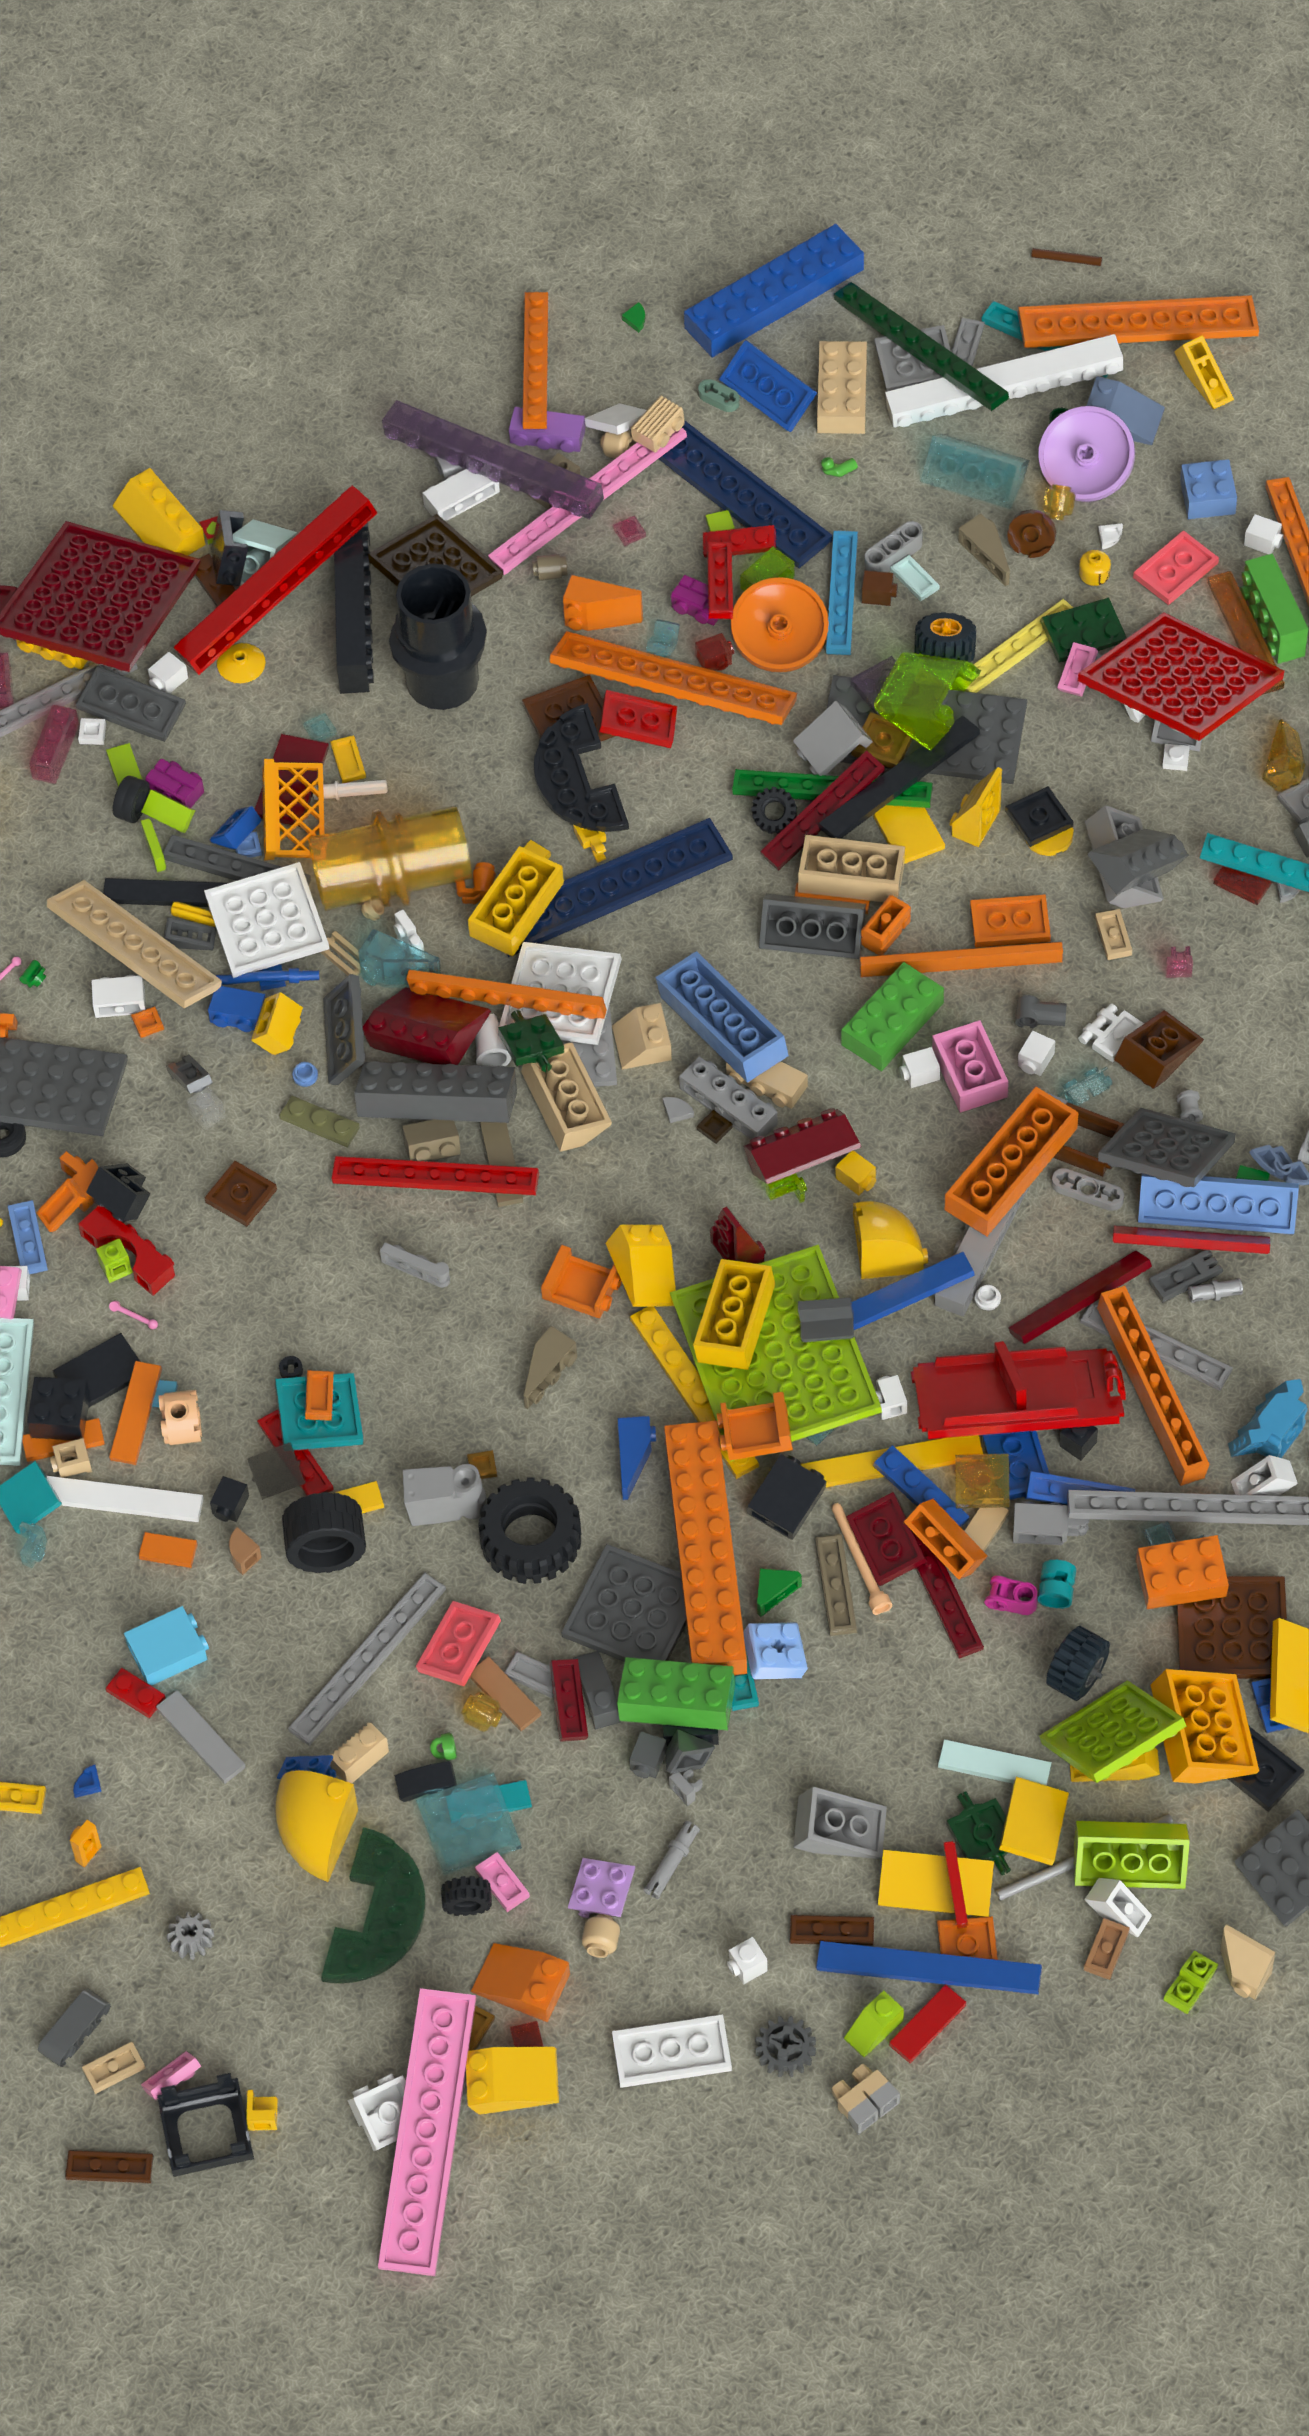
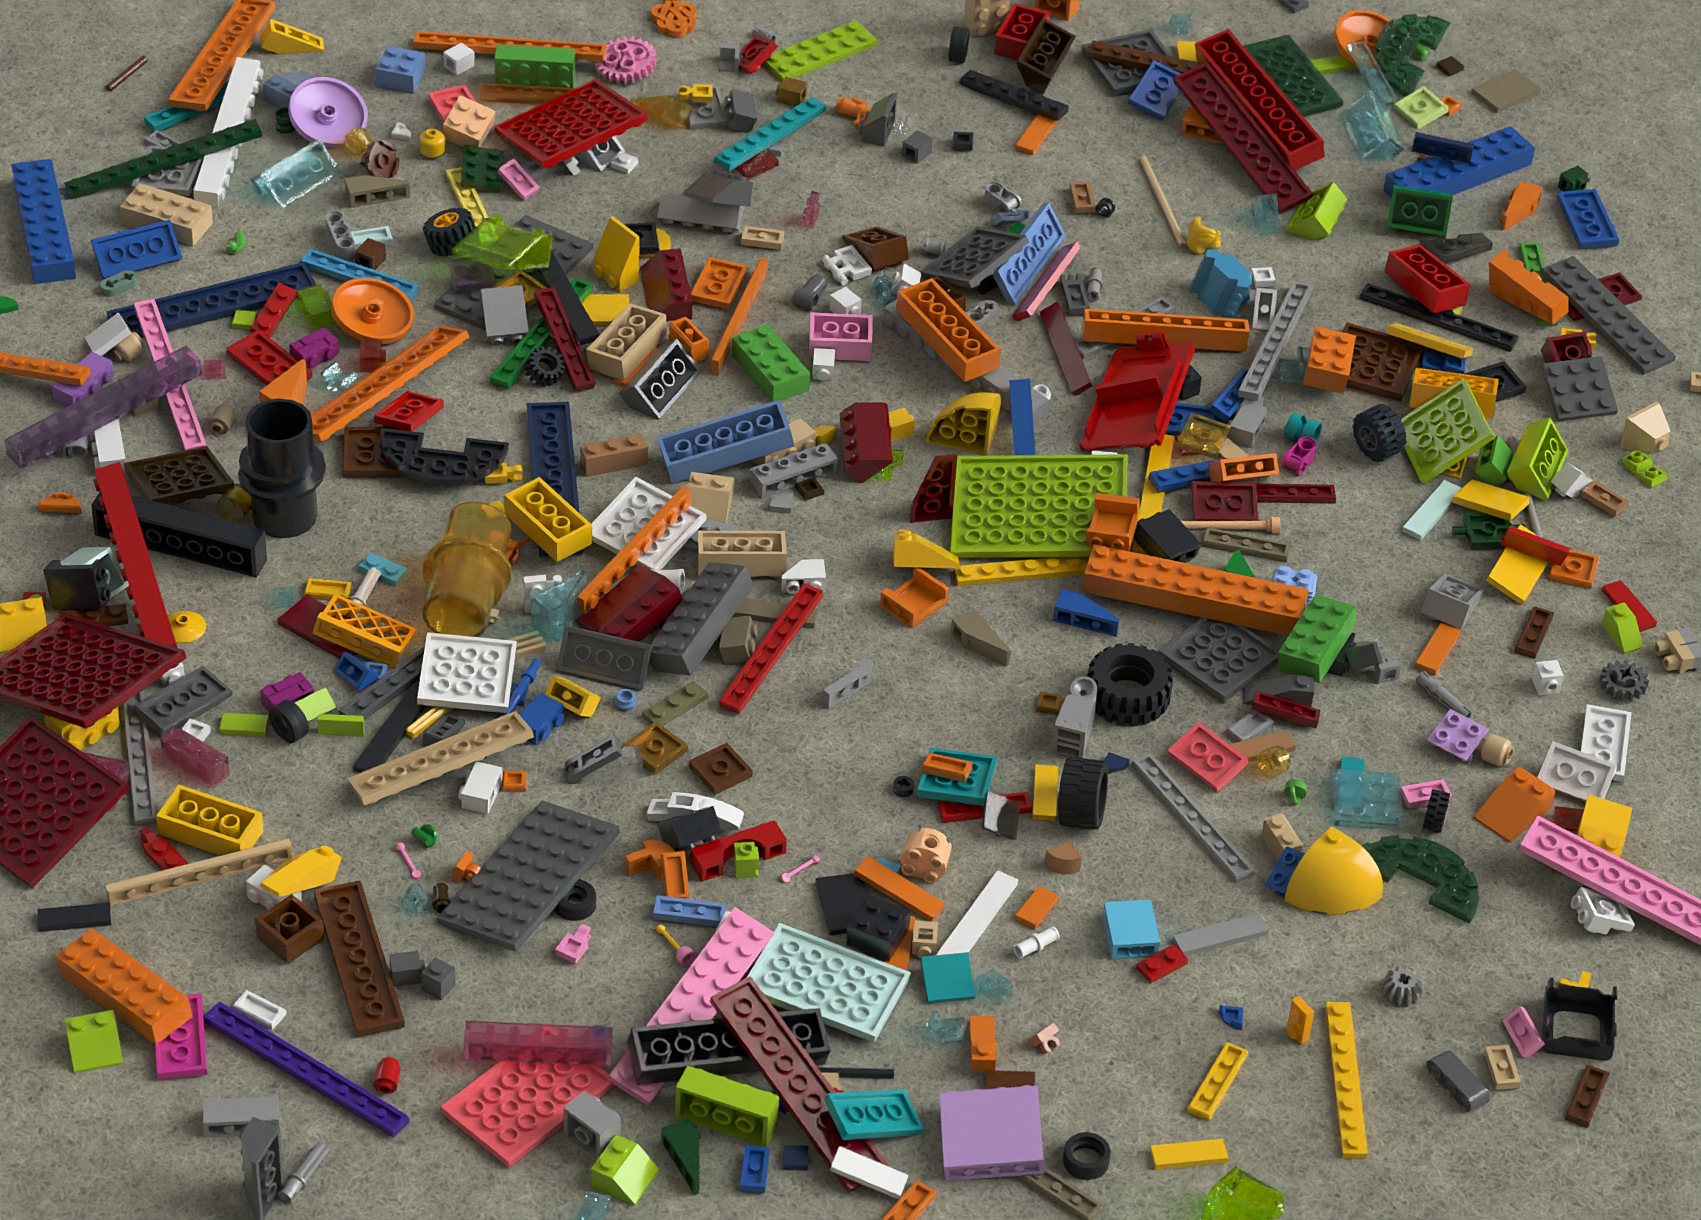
camera: 75 degrees left, 15 degrees down
(113, 1563) = (1036, 942): none -> white pin
(162, 1197) = (684, 803): none -> white slope
(229, 1499) = (1011, 853): black brick -> none
(245, 1125) = (658, 747): none -> pearl gold plate
(363, 484) = (61, 503): none -> orange plate
(400, 792) = (390, 571): none -> medium azure plate
(415, 1556) = (1116, 762): none -> dark blue tile
(425, 1780) = (1319, 812): black slope -> none
(531, 1040) = (689, 545): dark green plate -> none
(563, 1168) = (806, 571): none -> white slope
(595, 2030) = (1576, 772): none -> white plate
(647, 1755) = (1351, 681): dark grey brick -> none
(658, 424) = (141, 305): tan brick -> none
(662, 567) = (262, 357): none -> red plate
(665, 925) = (613, 455): none -> medium nougat brick
(719, 580) = (311, 325): red tile -> none
(734, 1314) = (1005, 507): yellow brick -> none
(753, 1833) = (1438, 648): none -> orange tile
(807, 1106) = (825, 434): none -> yellow slope
(826, 1319) = (1035, 463): dark grey panel -> none
(929, 1967) = (1588, 588): blue tile -> none
(975, 877) = (667, 285): none -> dark red slope
(1103, 1097) = (904, 278): none -> white brick
(1103, 1803) = (1494, 462): none -> bright green brick
(1138, 585) = (468, 123): none -> light nougat brick

